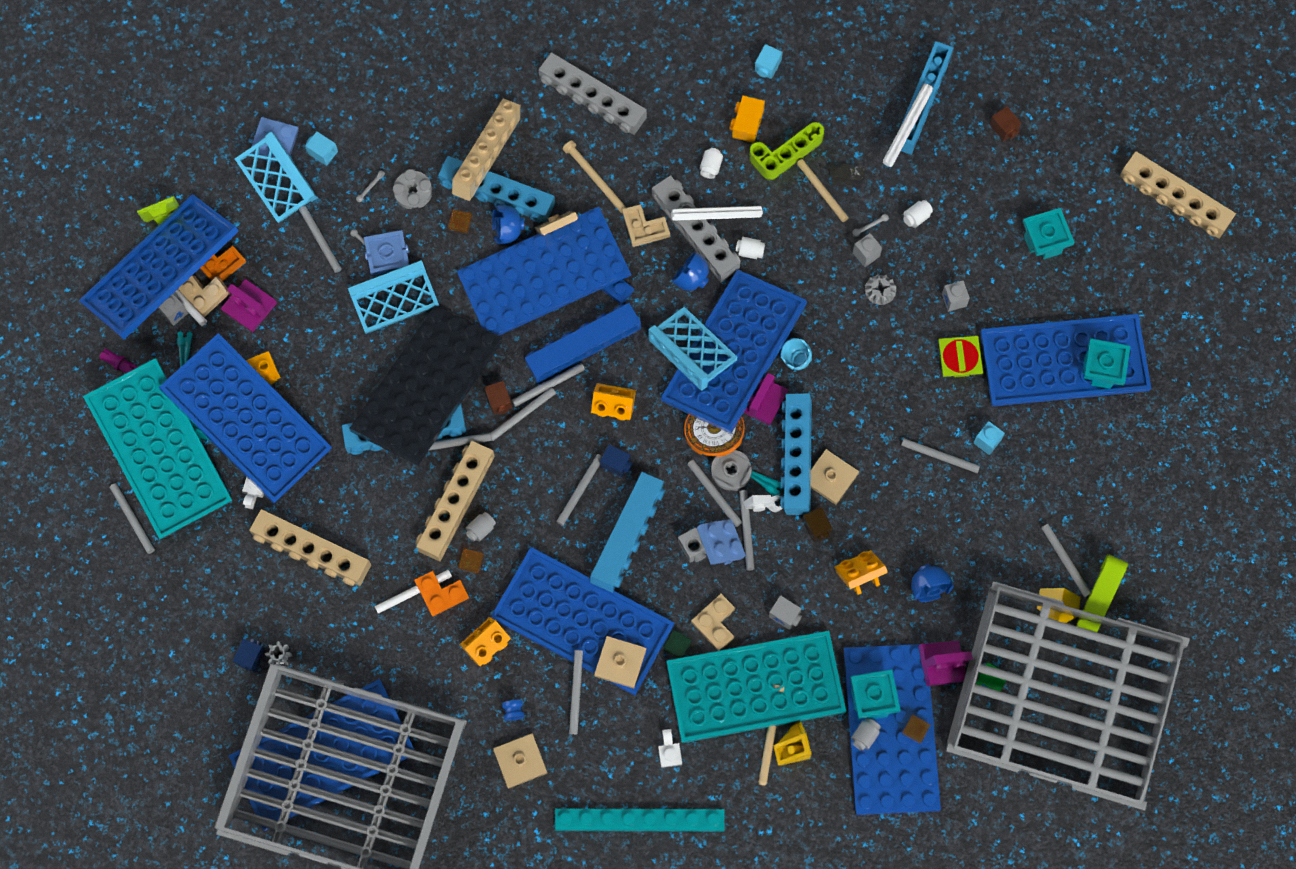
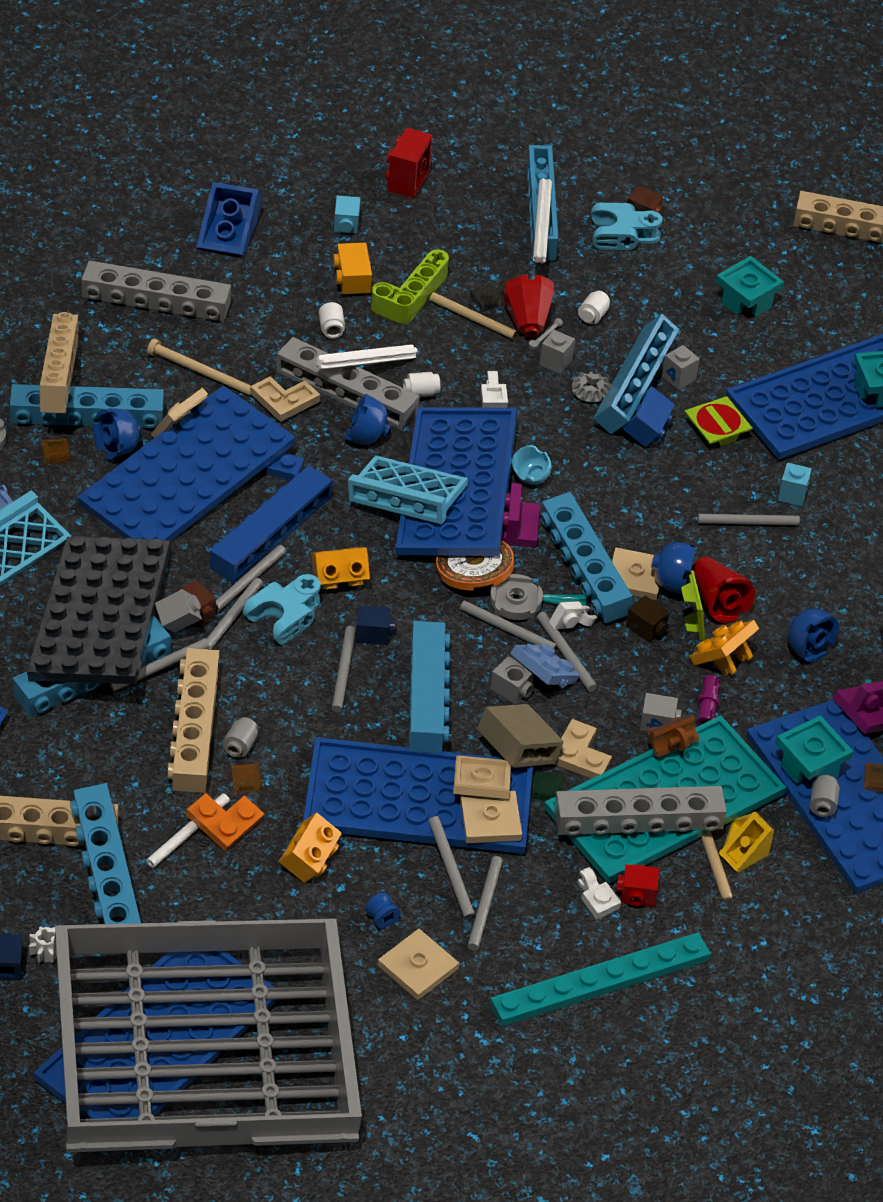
camera: 30 degrees left, 25 degrees down
(346, 603) = (97, 802): none -> dark azure brick
(478, 406) = (178, 610): none -> light grey brick
(565, 421) = (289, 604): none -> medium azure piece
(588, 727) = (485, 903): none -> light grey bar
(627, 628) = (482, 777): none -> tan plate
(672, 600) = (520, 735): none -> dark tan brick
(675, 41) = (229, 219): none -> blue slope
(698, 682) = (639, 810): none -> light grey brick
(699, 755) = (638, 885): none -> red brick
(783, 641) = (673, 735): none -> dark orange hips
(801, 273) = (492, 393): none -> white plate
(828, 612) = (708, 700): none -> magenta pin
(836, 27) = (409, 162): none -> red brick
(852, 526) = (694, 622): none -> lime piece
(855, 487) = (673, 565): none -> blue cylinder
(865, 200) = (529, 302): none -> red cone
(883, 517) = (723, 590): none -> red cone
(906, 338) = (650, 417): none -> blue brick
(916, 293) = (636, 374): none -> dark azure brick
(982, 143) = (624, 226): none -> medium azure piece

